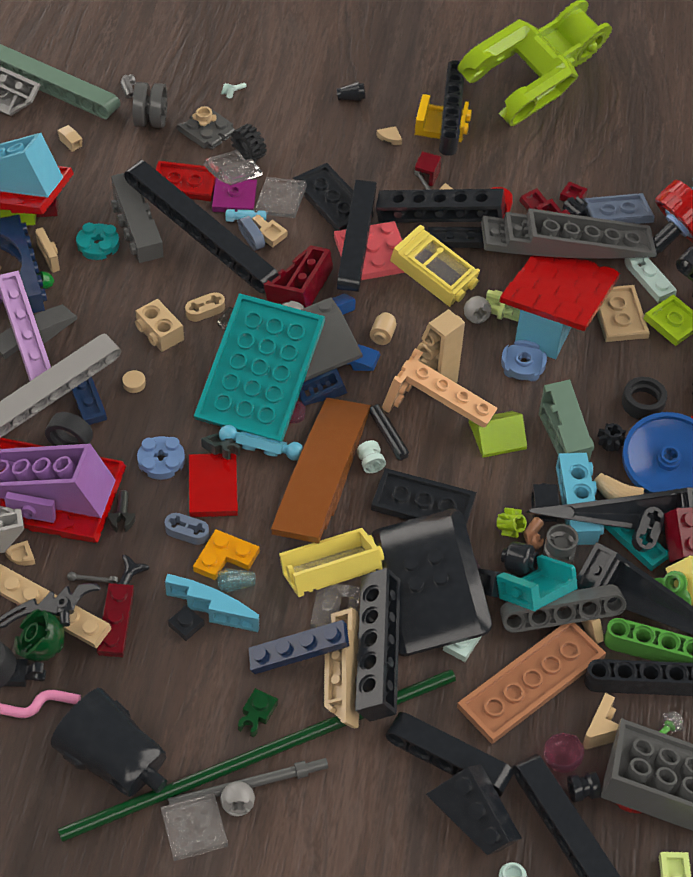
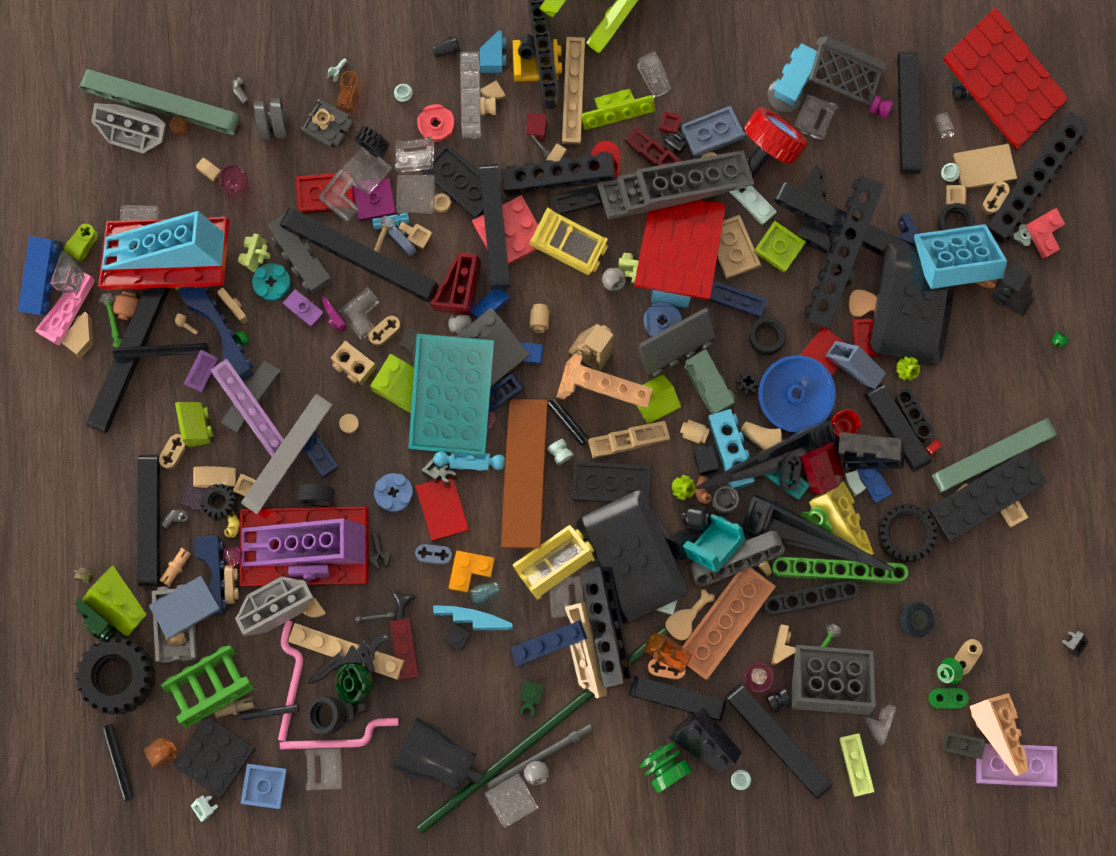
camera: 10 degrees left, 25 degrees up
(54, 98) = (178, 120): none -> clear orange plate
(91, 147) = (233, 179): none -> clear pink hair
(91, 209) = (256, 252): none -> yellowish green hips
(123, 269) = (303, 308): none -> medium lavender plate
(154, 283) = (335, 320): none -> magenta plate
(179, 282) = (355, 310): none -> clear brick
(194, 177) = (335, 196): none -> clear brick
(197, 349) = (395, 382): none -> lime slope
(237, 107) = (347, 93): none -> clear orange piece
(241, 210) = (386, 223): none -> piece
(290, 165) = (414, 159): none -> clear plate
(295, 118) = (403, 92): none -> light aqua plate
(306, 213) = (442, 203): none -> tan tile
(314, 154) = (442, 115): none -> coral plate
(364, 132) = (470, 95): none -> clear beam
(381, 143) = (488, 105): none -> tan wheel
(397, 105) = (491, 54): none -> dark azure slope
(413, 828) = (665, 767): none -> green wheel
(431, 104) = (527, 48): none -> black cone
(443, 717) = (664, 673): none -> light nougat beam
(449, 690) = (667, 651): none -> clear orange slope
(456, 464) = (628, 439): none -> tan slope
(474, 669) = (680, 623): none -> tan piece
(475, 148) = (573, 90): none -> tan plate
(518, 172) = (616, 108): none -> lime bracket
(523, 369) = (676, 343): none -> dark grey slope
(537, 470) = (694, 431): none -> tan brick
(564, 151) = (654, 74): none -> clear slope
(615, 357) = (737, 299): none -> dark blue plate

